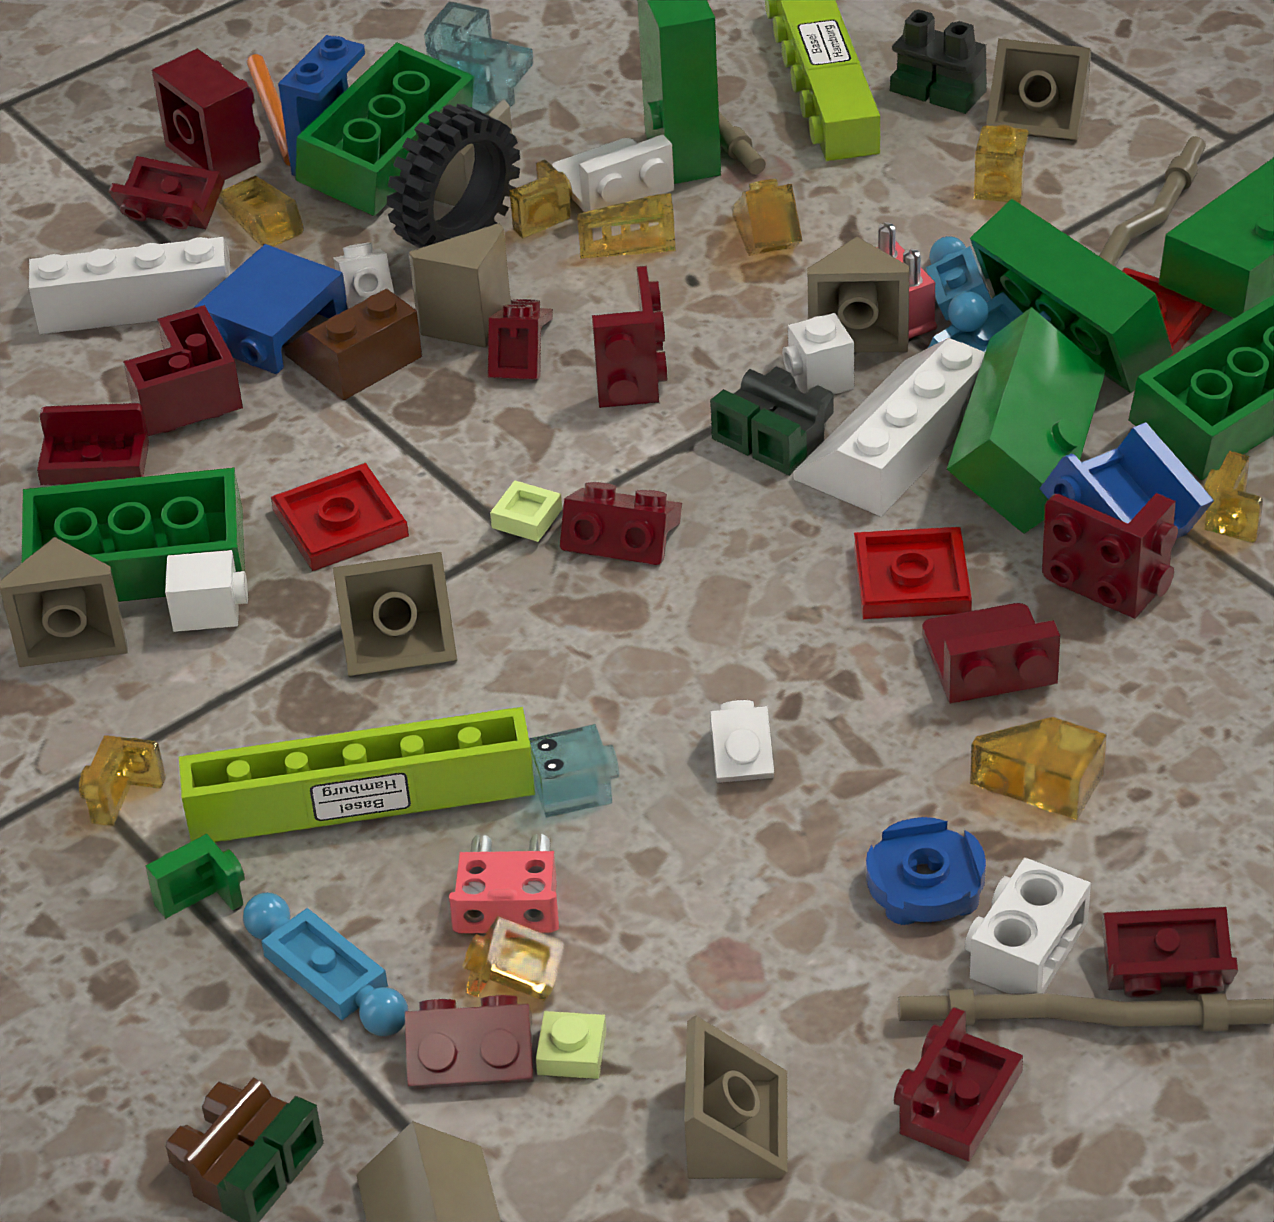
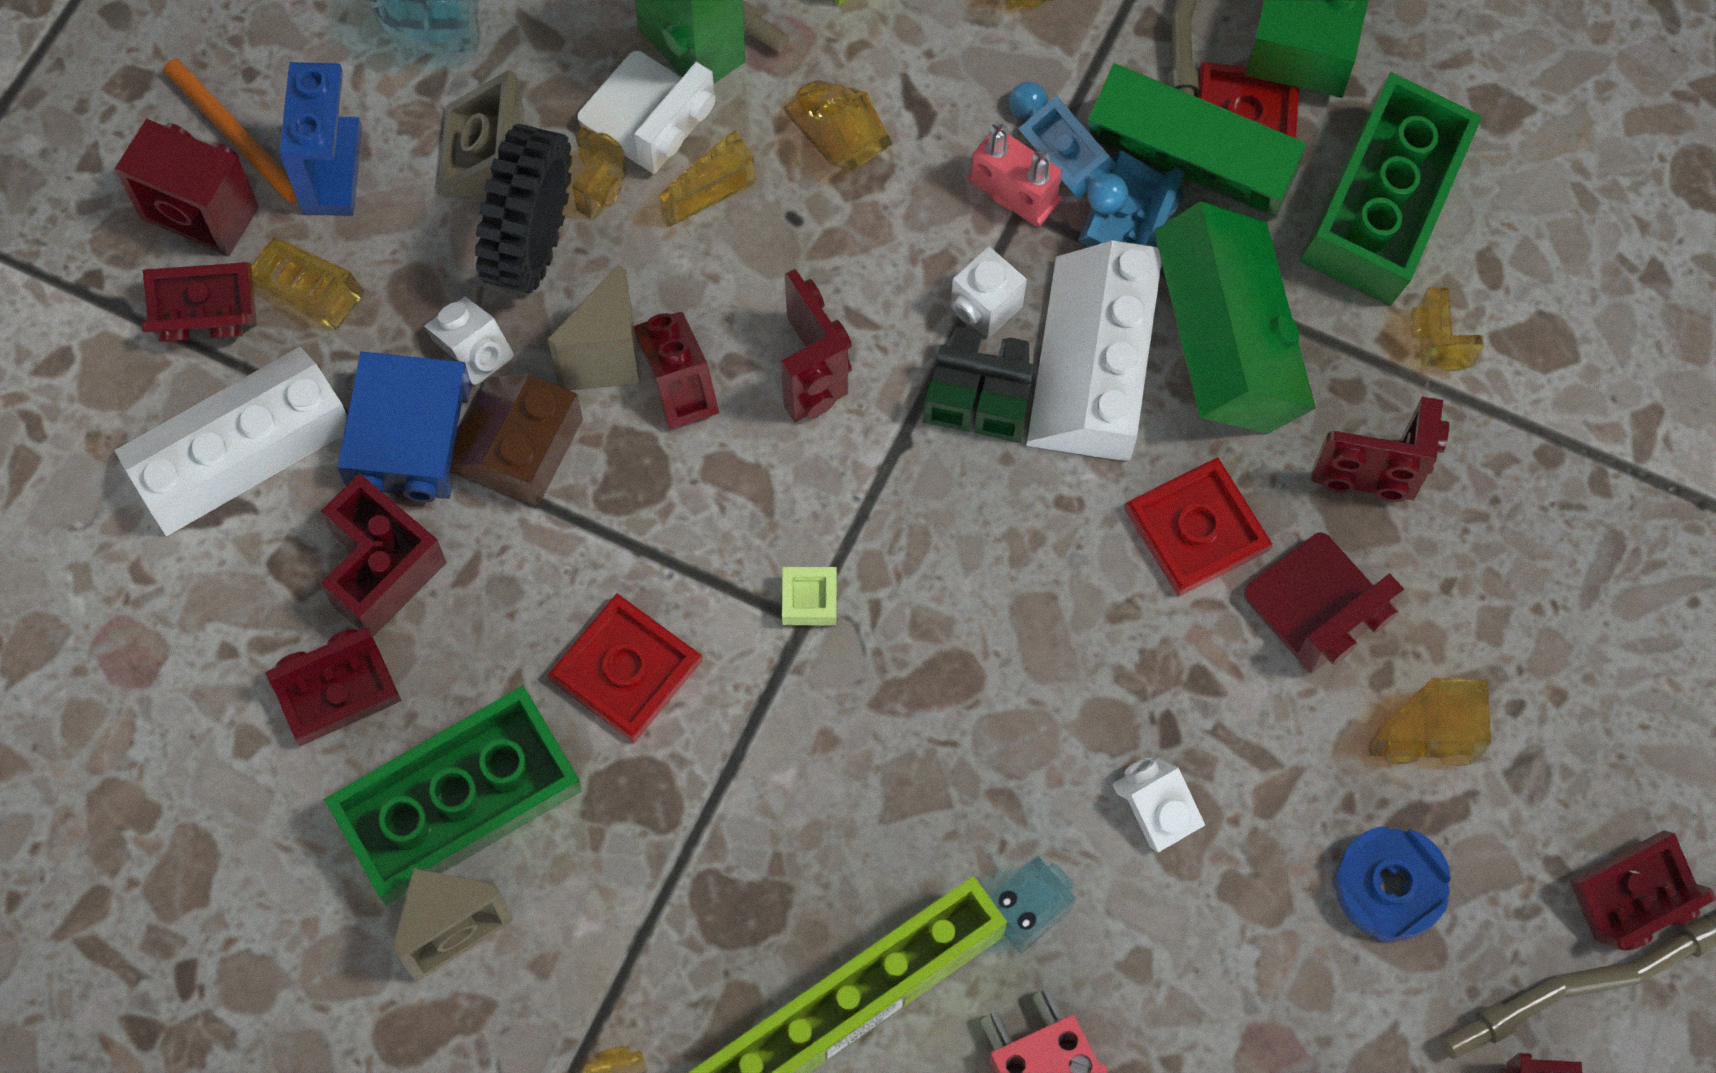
camera: 30 degrees left, 25 degrees up
(204, 590) = (565, 832): white brick -> none
(358, 137) = (389, 138): green brick -> none
(394, 613) = (766, 789): dark tan slope -> none
(618, 524) = (905, 574): dark red bracket -> none
(866, 294) = (1001, 211): dark tan slope -> none
(1028, 929) = (1531, 921): white brick -> none
(1128, 477) = (1365, 374): blue panel -> none

